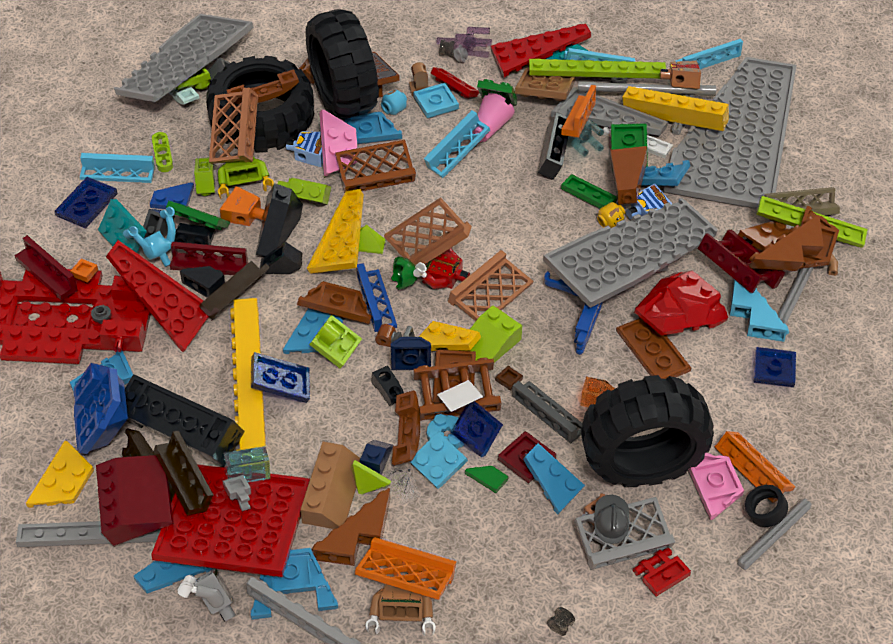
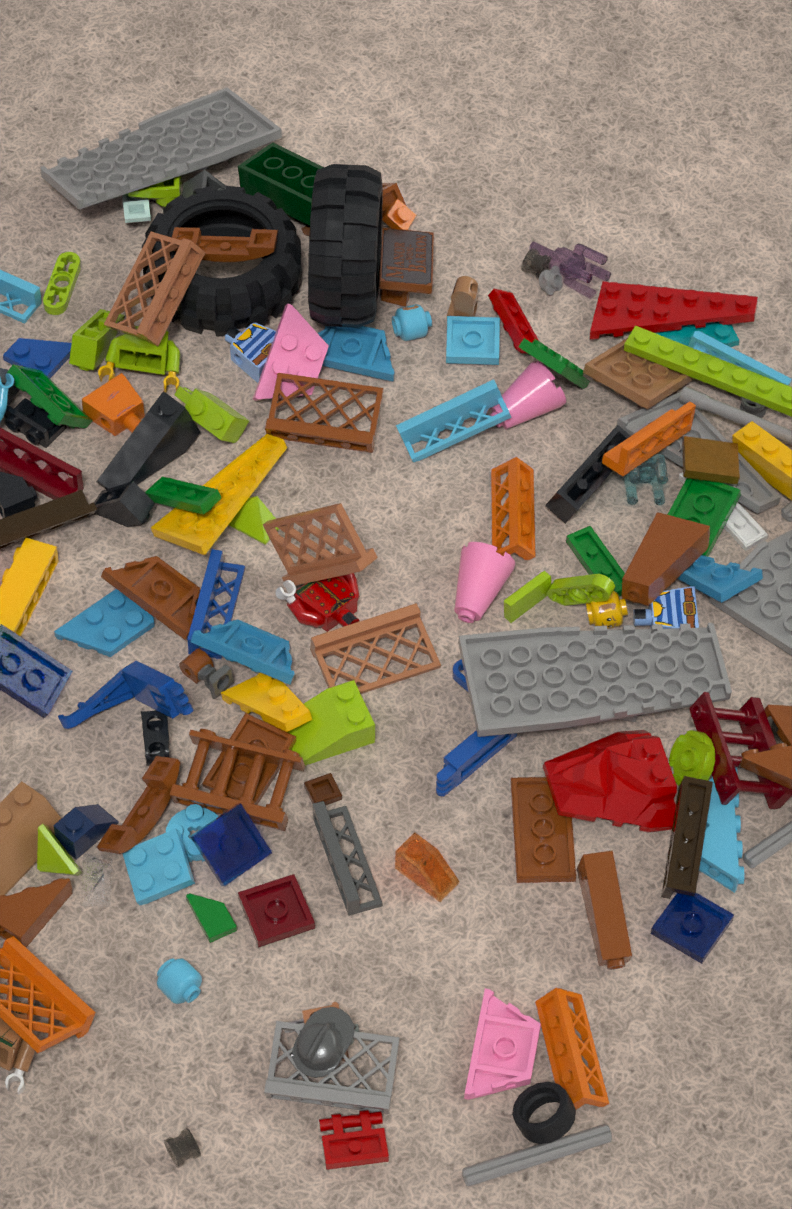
camera: 25 degrees right, 5 degrees up
(276, 44) = (282, 178): none -> dark green brick
(320, 240) = (183, 495): none -> green plate
(335, 341) = (122, 644): lime plate -> none
(365, 357) = (138, 681): none -> blue hinge
(403, 273) = (271, 578): green hair -> none
(410, 353) = (210, 707): dark blue slope -> none
(415, 311) = (249, 647): none -> dark azure wing
(460, 395) = (230, 791): white sticker -> none
(494, 522) = (179, 981): none -> medium azure head
(524, 179) = (518, 505): none -> orange fence
(528, 223) = (480, 579): none -> bright pink cone
(557, 482) = (290, 955): dark azure wing -> none
(560, 224) = (527, 596): none -> lime tile
(603, 202) = (581, 589): none -> lime beam
(619, 114) = (710, 460): none -> pearl gold tile
(642, 407) = (424, 945): black tyre -> none
(718, 273) = (692, 756): none -> lime tile
(722, 376) = (604, 909): none -> dark orange slope
(743, 319) = (687, 837): none -> dark brown fence

